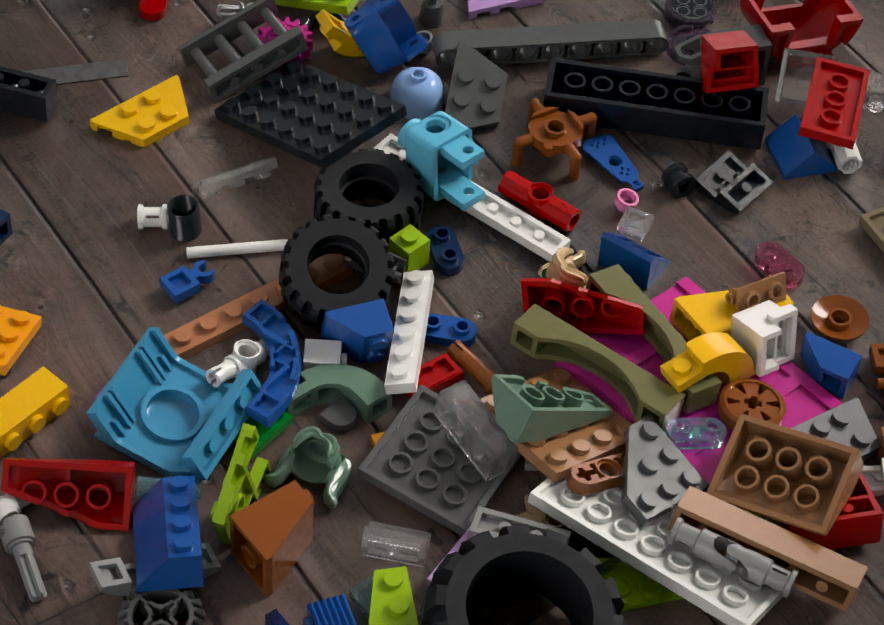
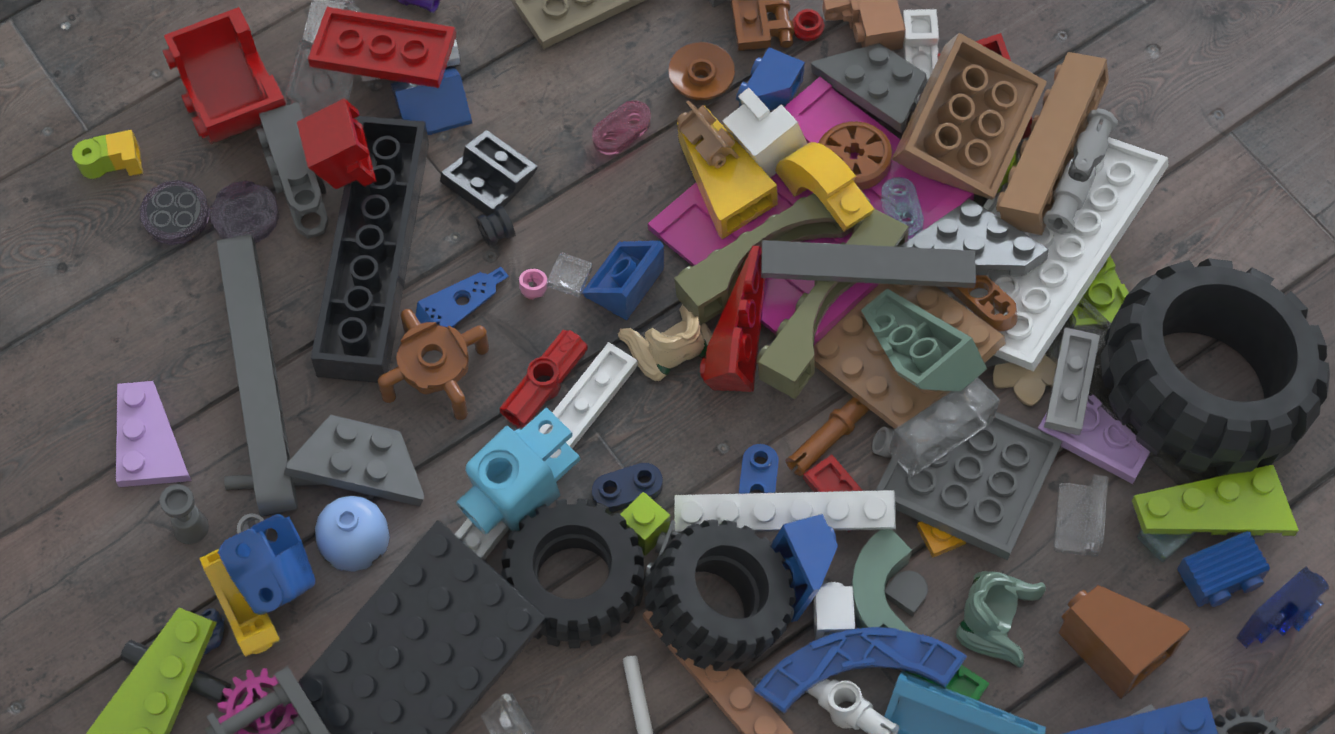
camera: 90 degrees left, 15 degrees up
(238, 484) = (1077, 679): lime wing -> none
(624, 380) = (868, 264): none -> dark grey tile

